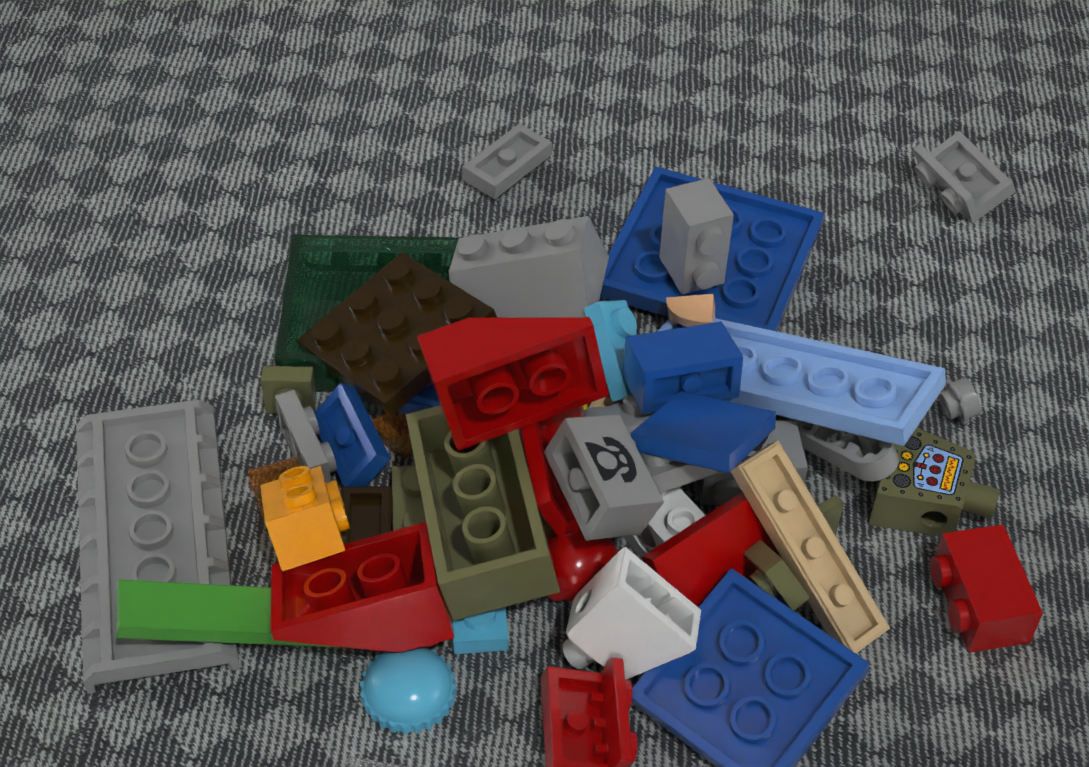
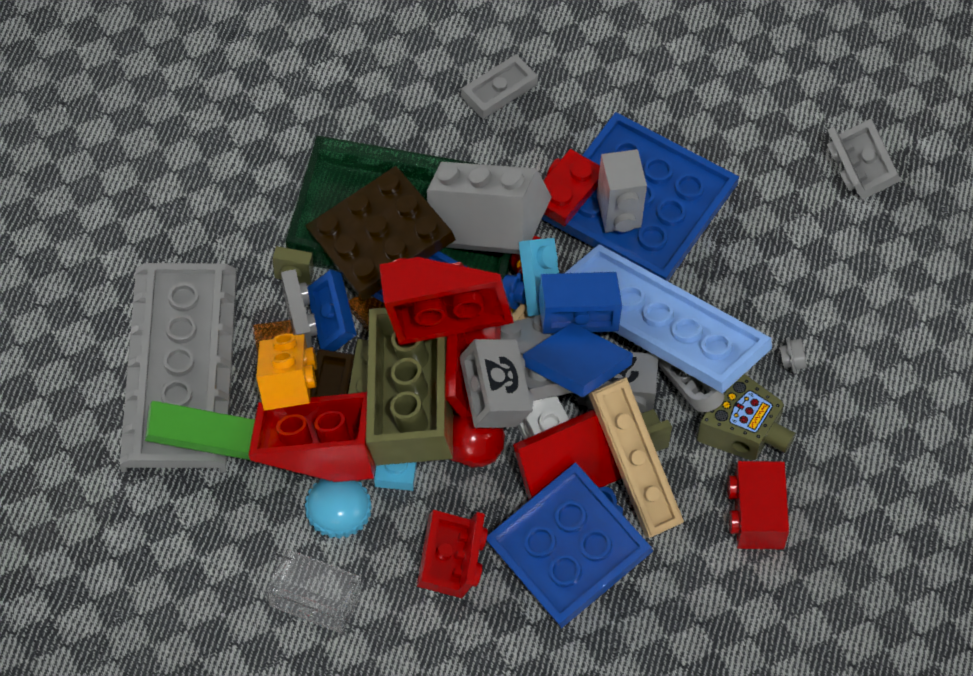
camera: 10 degrees right, 10 degrees up
(630, 246) = (570, 185): none -> red bracket
(630, 616) = (497, 486): white torso -> none
(691, 309) = (608, 251): light nougat tile -> none
(775, 576) = (606, 473): olive plate -> none

